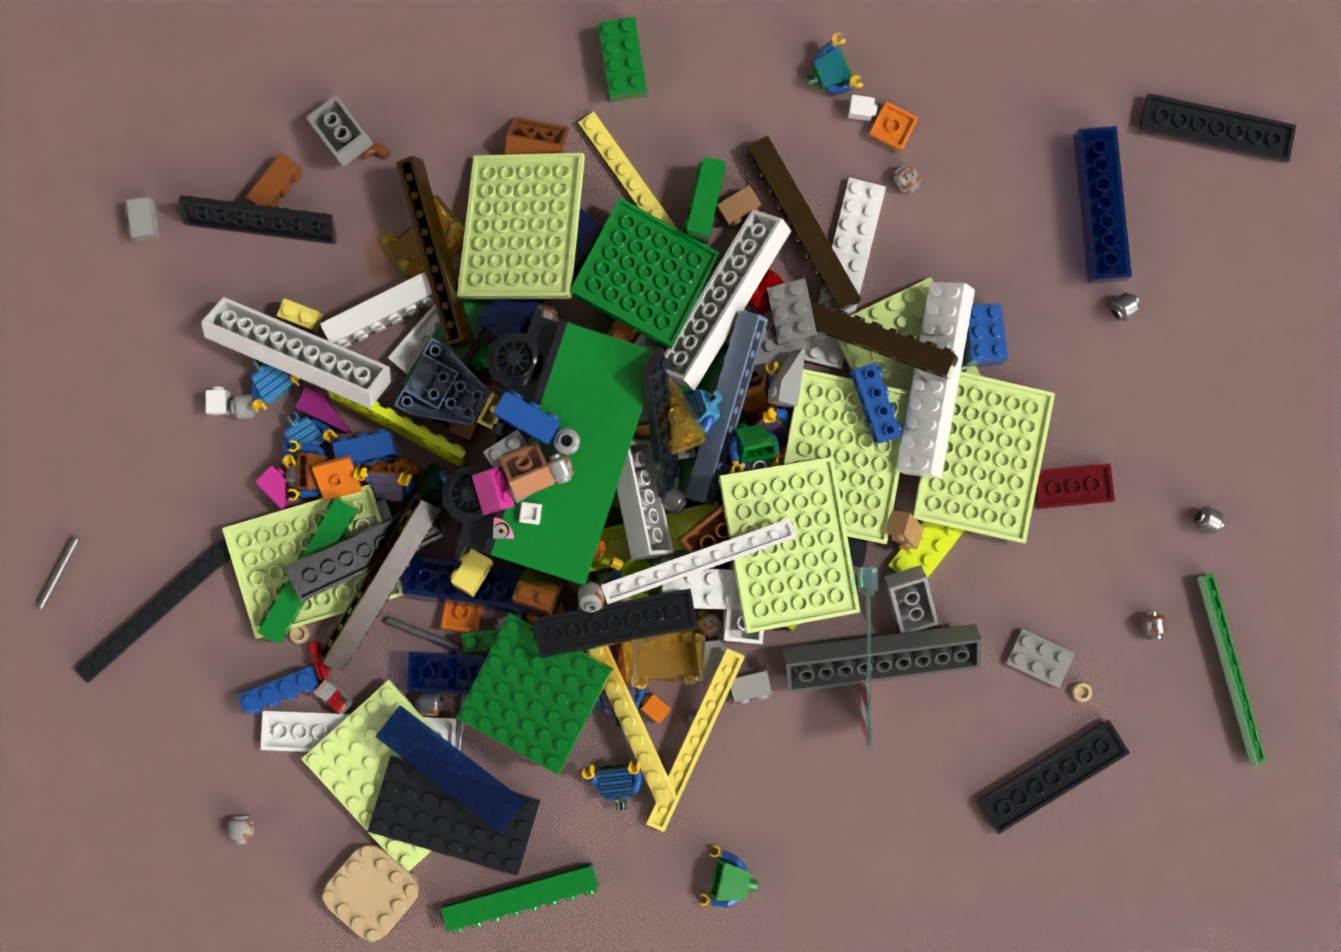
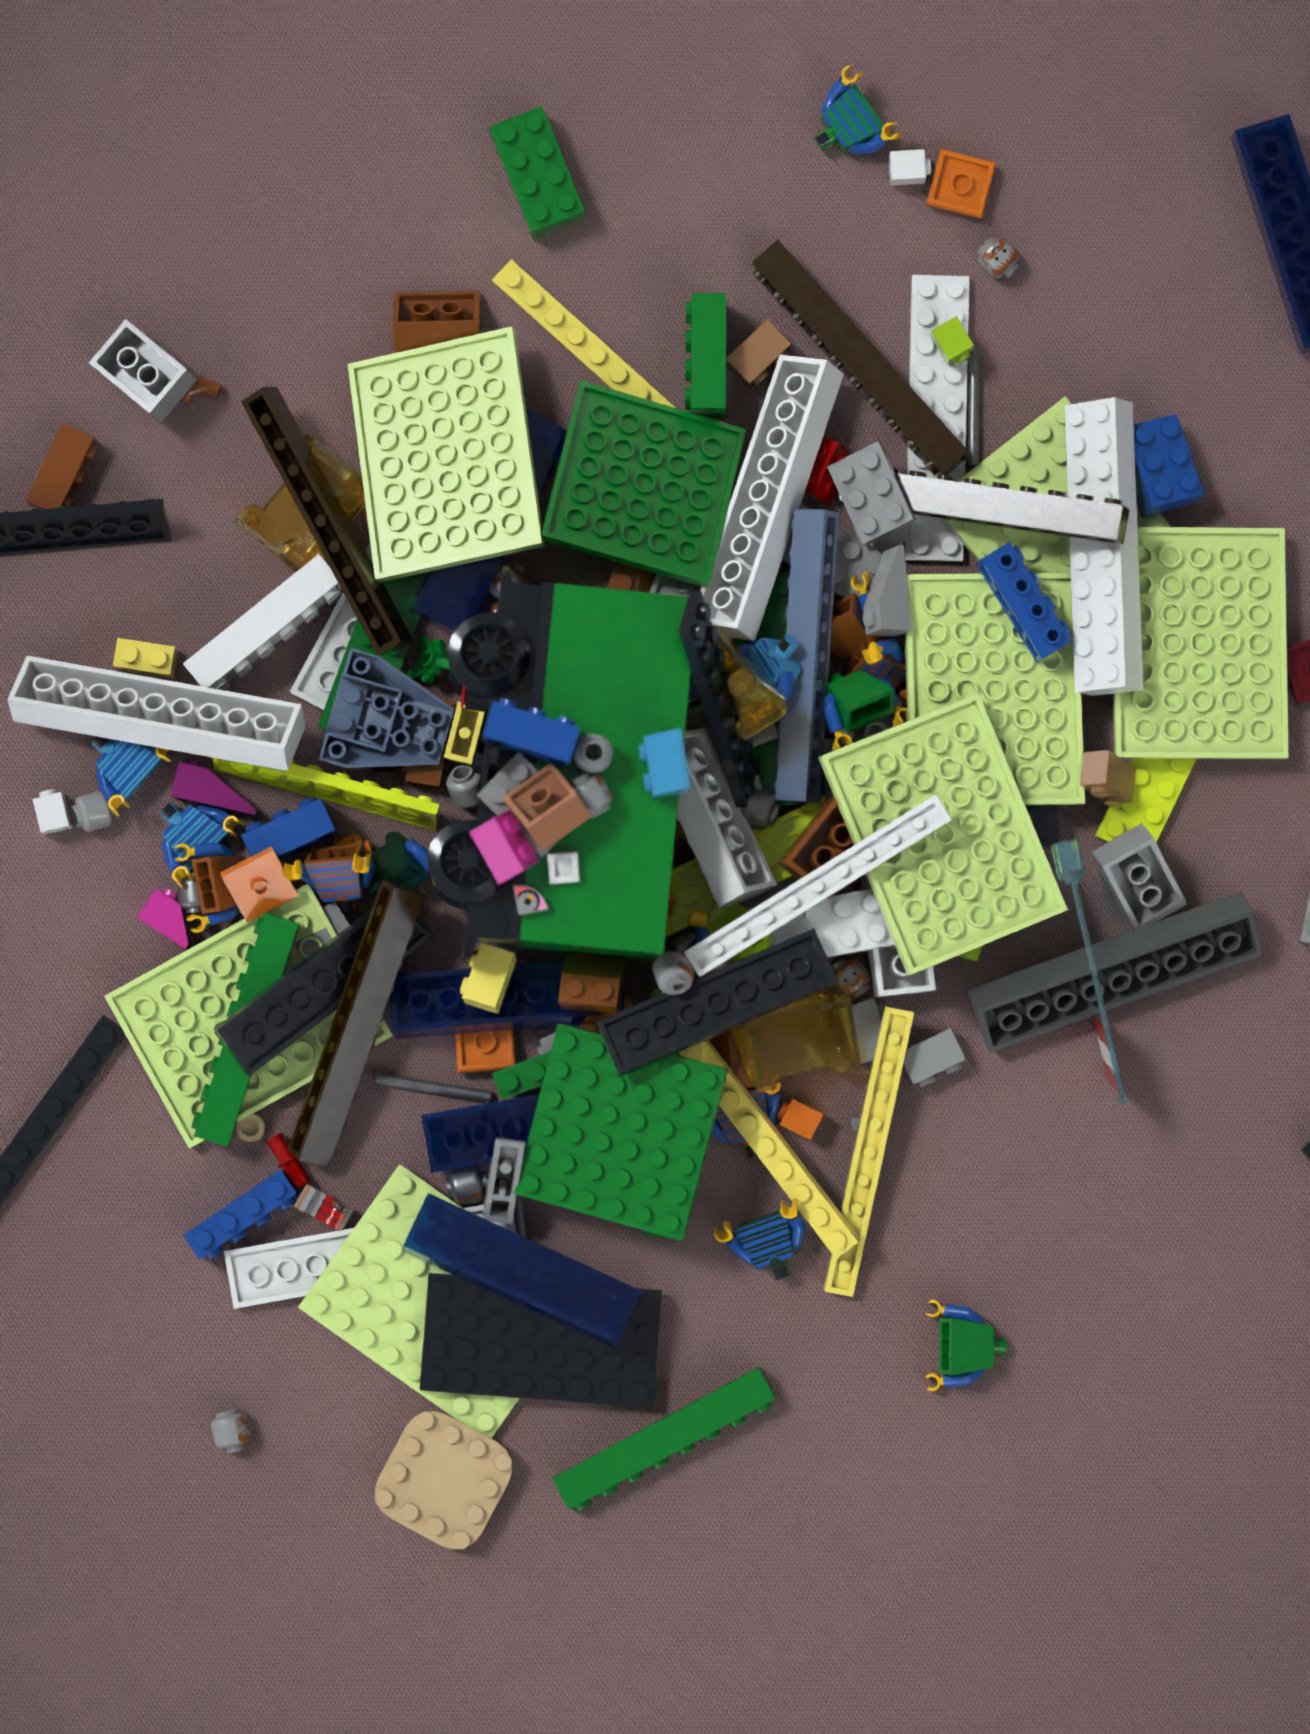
camera: 10 degrees left, 0 degrees up
(451, 707) = (502, 1180): none -> light grey slope
(483, 442) = (464, 786): none -> light grey head
(613, 458) = (665, 763): none -> dark azure slope
(866, 225) = (952, 341): none -> lime brick
(870, 271) = (973, 408): none -> flat silver bar

